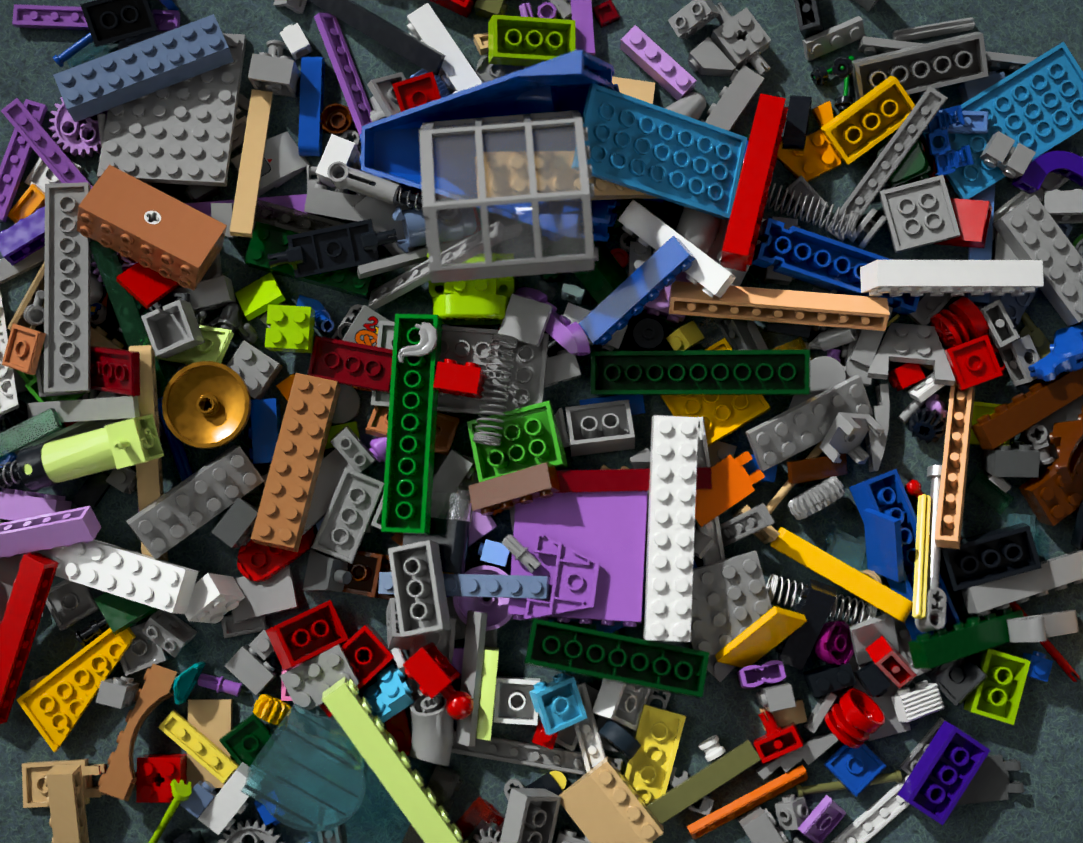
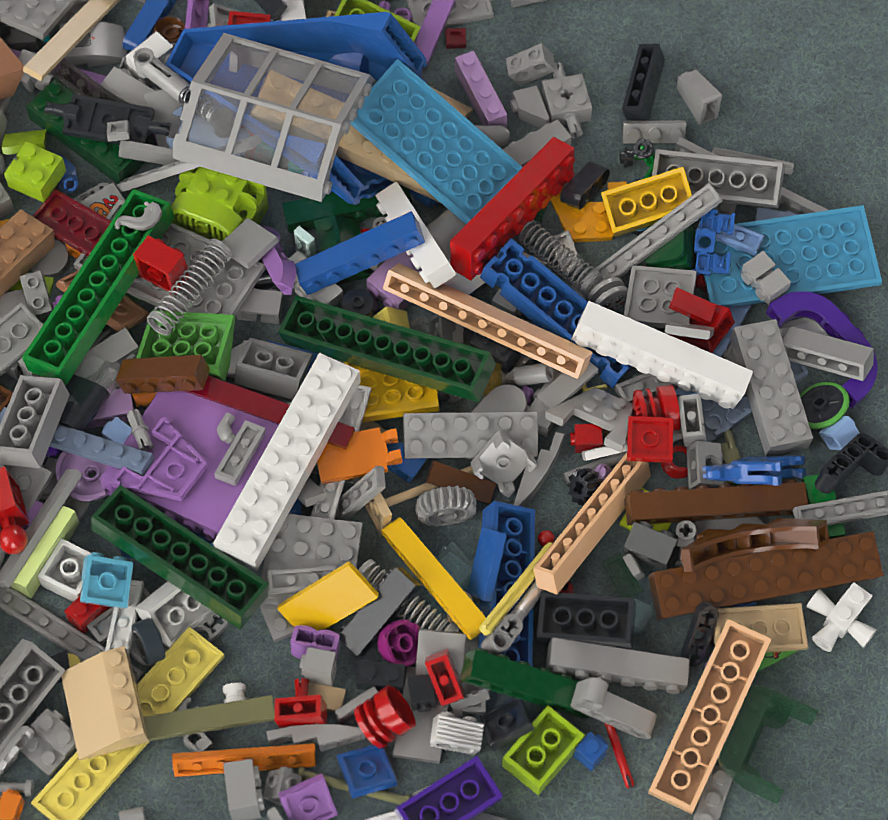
camera: 20 degrees right, 20 degrees down
(350, 258) = (118, 130): none -> light grey tile
(596, 519) = (224, 430): none -> light grey arm
(623, 537) = (240, 453): none -> light grey plate
(727, 627) = (295, 579): none -> light grey tile
(957, 214) = (692, 306): none -> red tile
(971, 244) = (689, 330): none -> light grey tile

